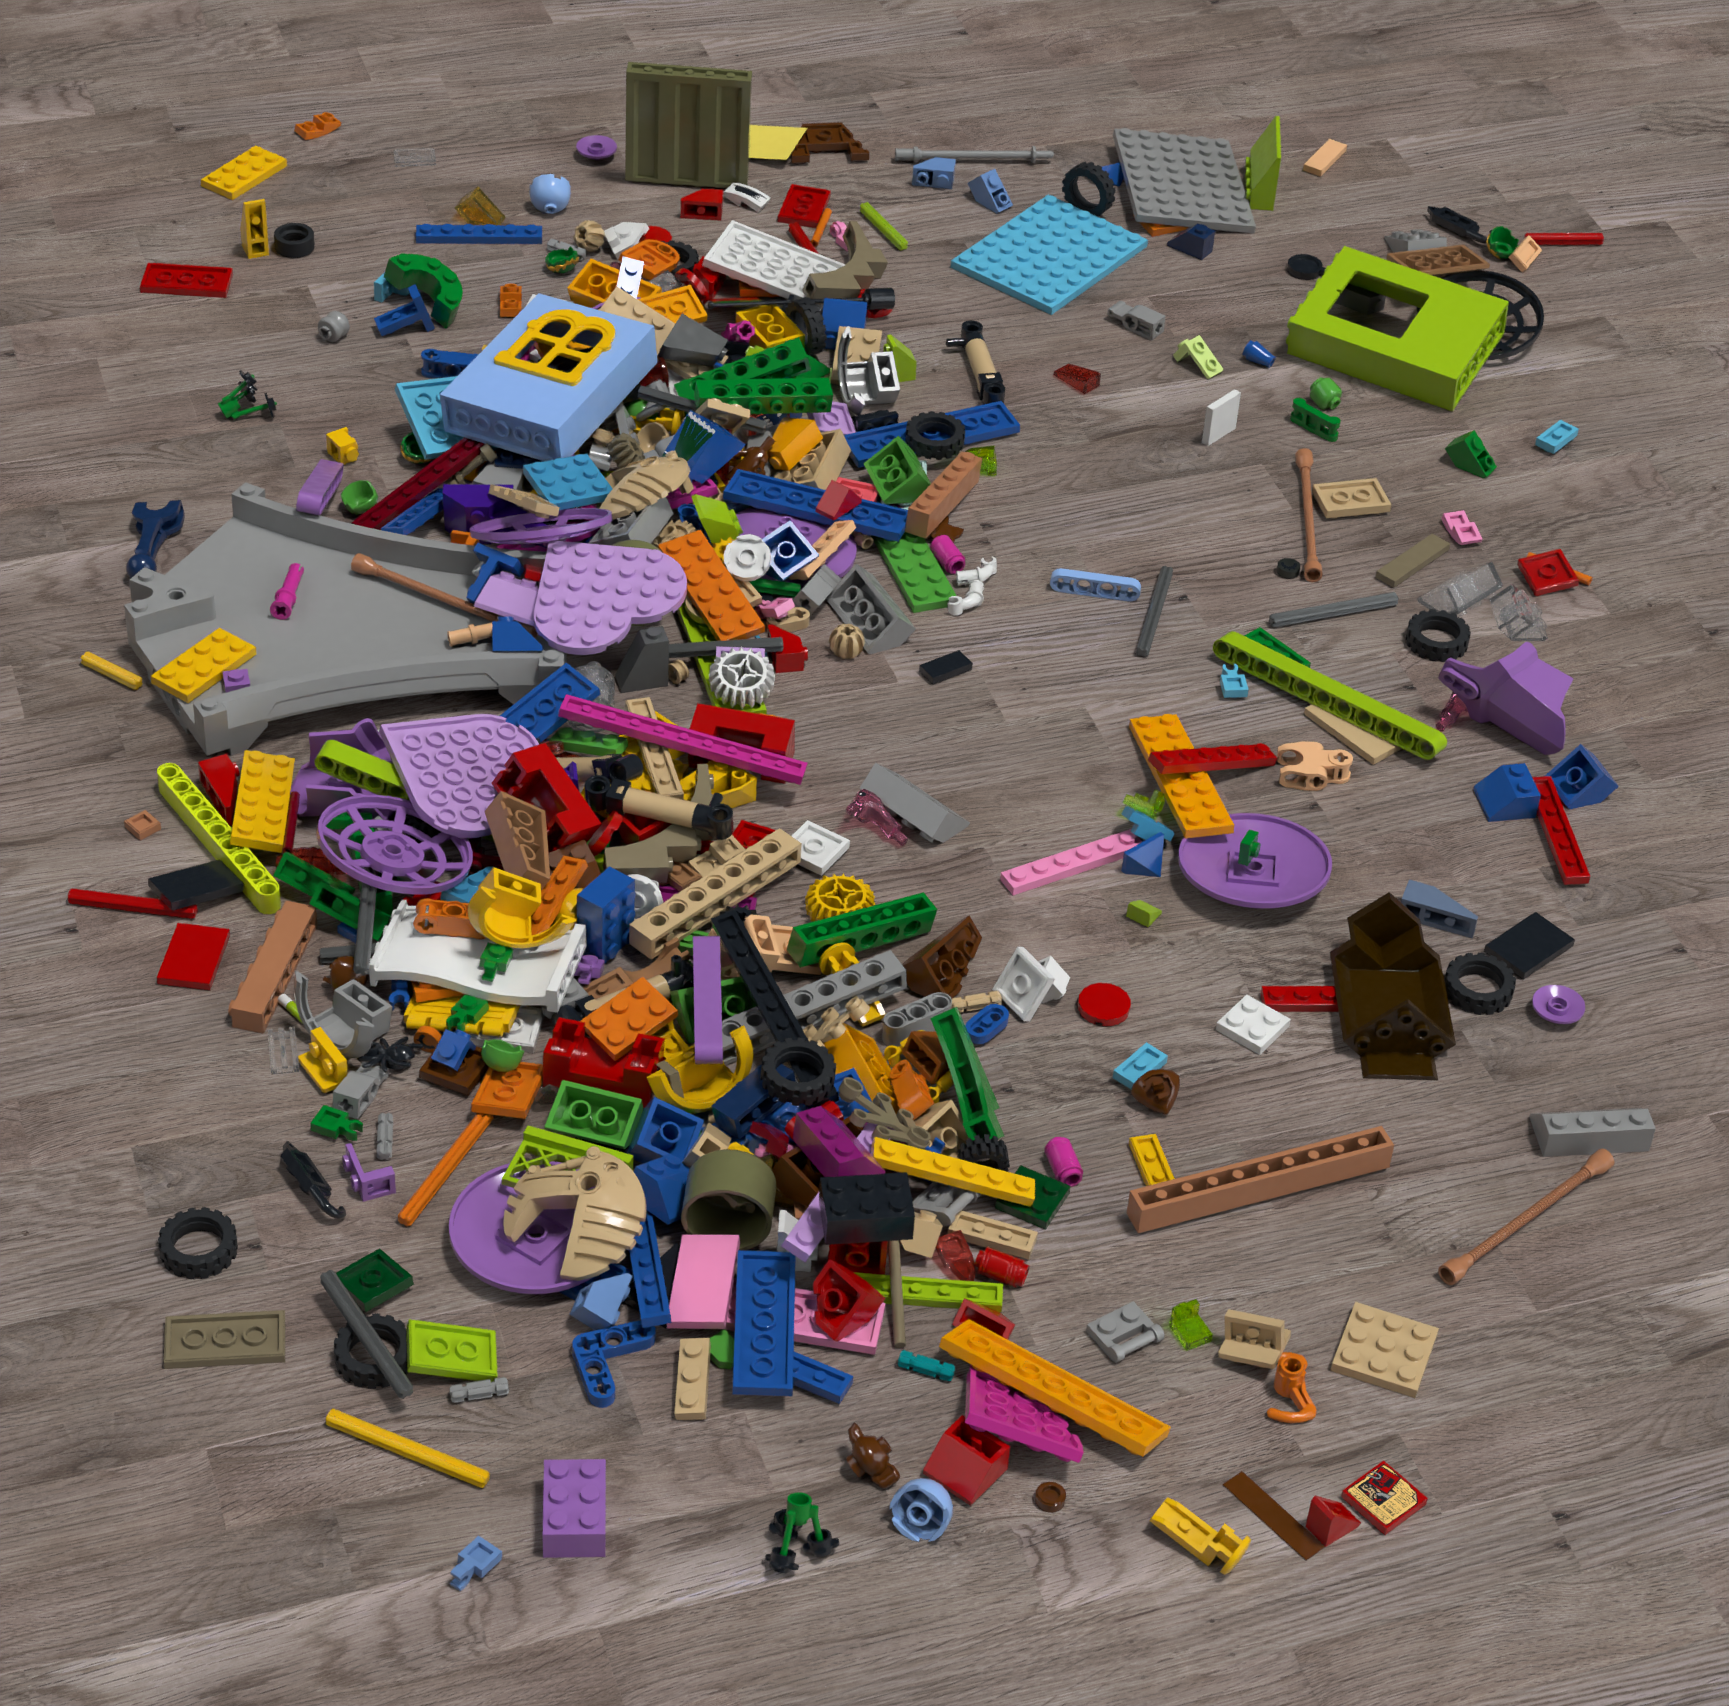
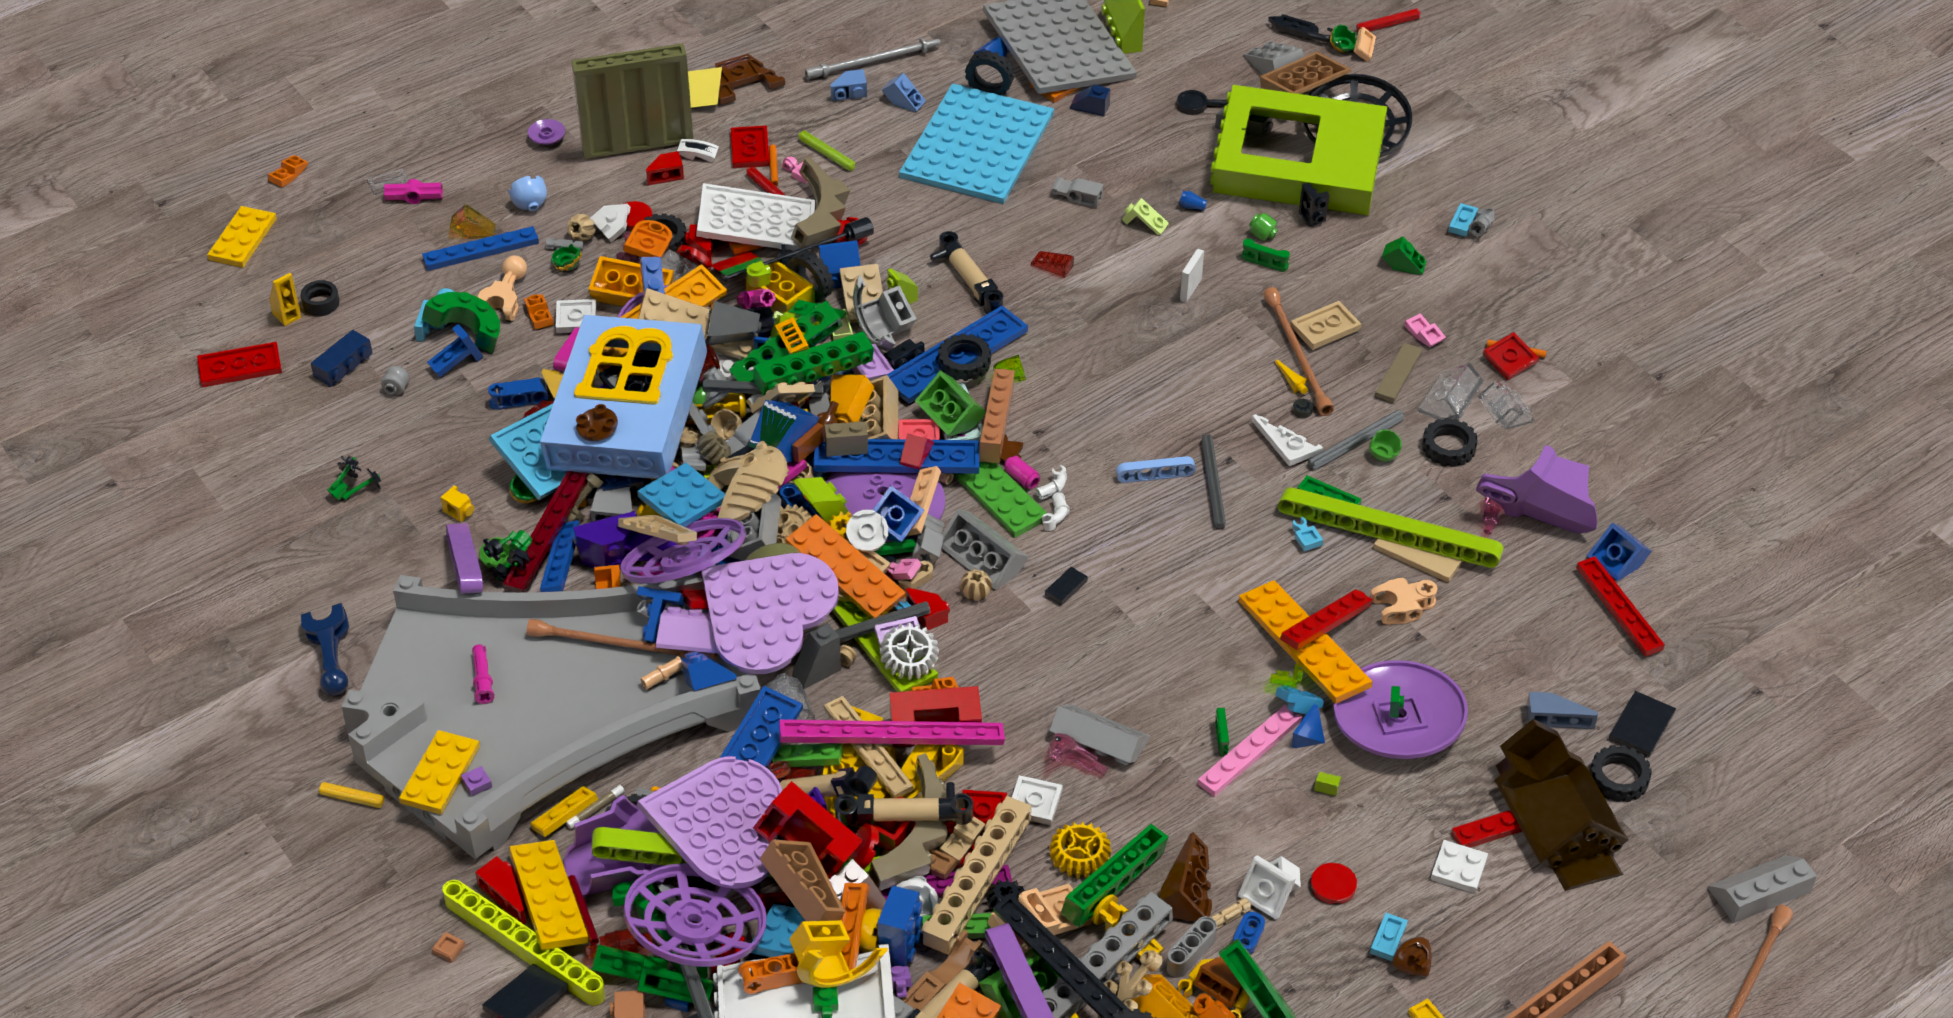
camera: 15 degrees left, 5 degrees up
(289, 295) = (341, 358): none -> dark blue brick
(300, 740) = (563, 811): none -> yellow tile
(375, 497) = (519, 558): none -> black plant
(434, 169) = (413, 191): none -> dark pink piece
(480, 276) = (502, 293): none -> light nougat piece
(502, 388) = (596, 423): none -> reddish brown dish
(725, 467) = (808, 442): none -> dark orange tile
(748, 309) = (758, 275): none -> lime plate
(752, 375) = (800, 347): none -> light orange slope
(766, 472) = (846, 439): none -> dark tan brick
(1048, 834) = (1222, 731): none -> green tile
(1253, 594) = (1290, 446): none -> white wing
(1291, 539) = (1296, 381): none -> yellow piece
(1361, 620) = (1385, 445): none -> bright green hair
(1390, 384) = (1312, 205): none -> black bracket
(1508, 794) = (1568, 582): blue slope -> none
(1558, 1004) = (1690, 775): medium lavender dish -> none
(1577, 443) = (1484, 219): none -> light grey connector

